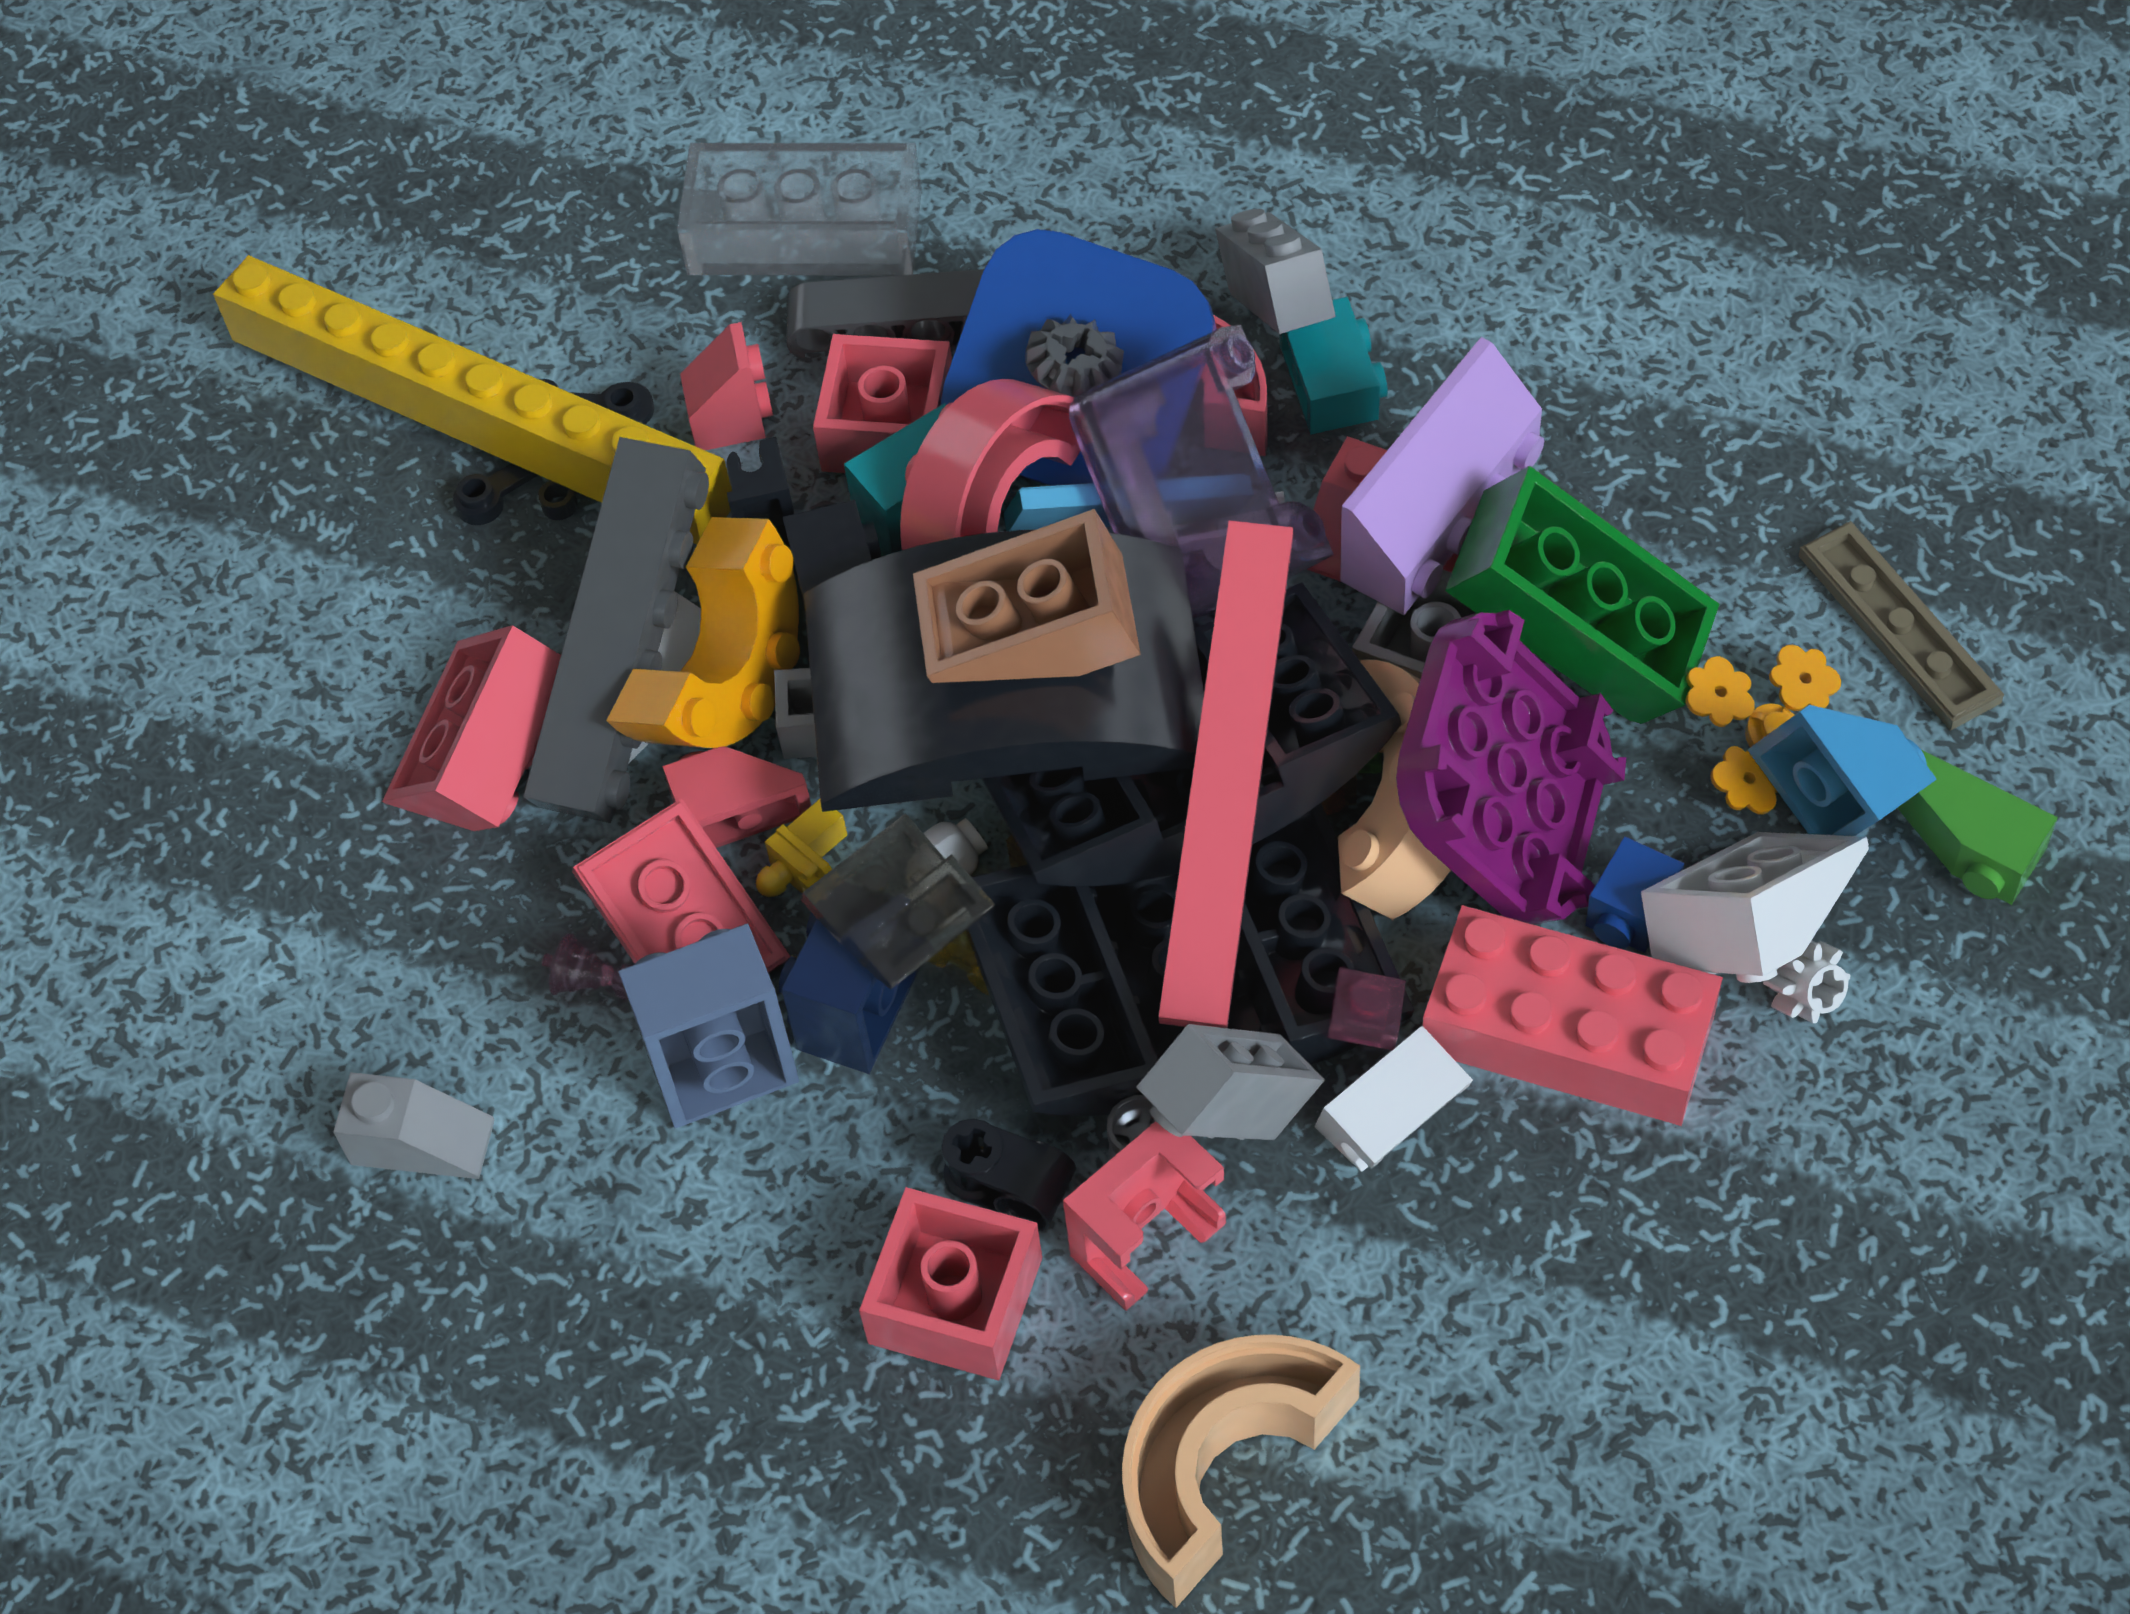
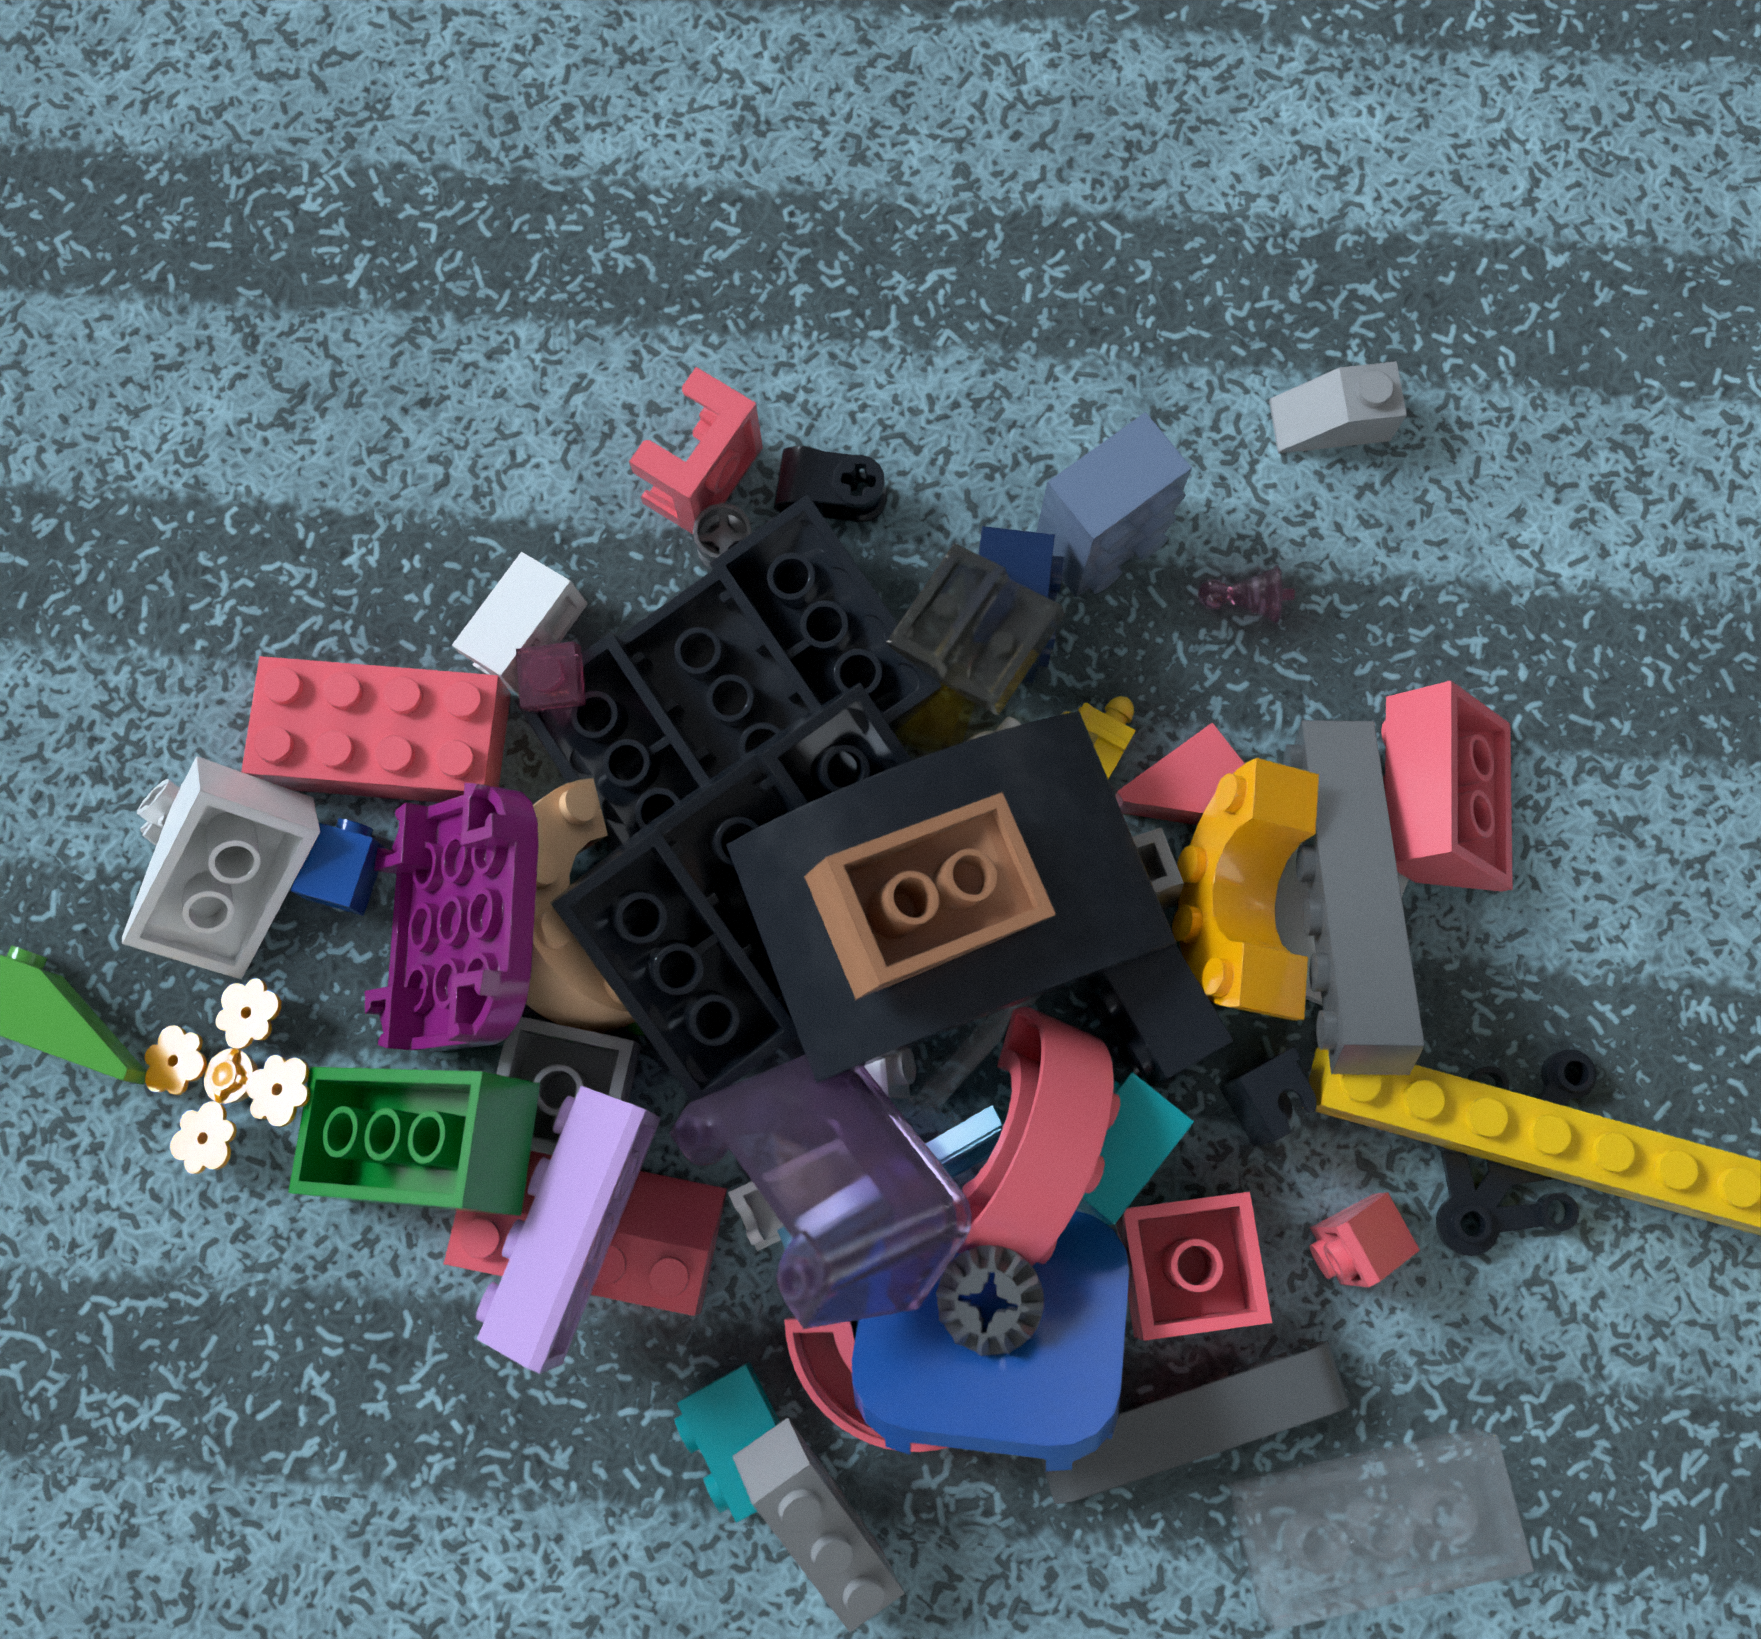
camera: 160 degrees right, 20 degrees up
(671, 888) = (1187, 647): coral tile -> none
(951, 1283) = (841, 370): coral brick -> none
(1199, 1411) = (617, 316): light nougat brick -> none
(1226, 776) = (706, 835): coral tile -> none
(1228, 1084) = (639, 536): light grey brick -> none
(1841, 769) = (141, 1003): dark azure slope -> none
(1901, 625) = (124, 1247): dark tan tile -> none

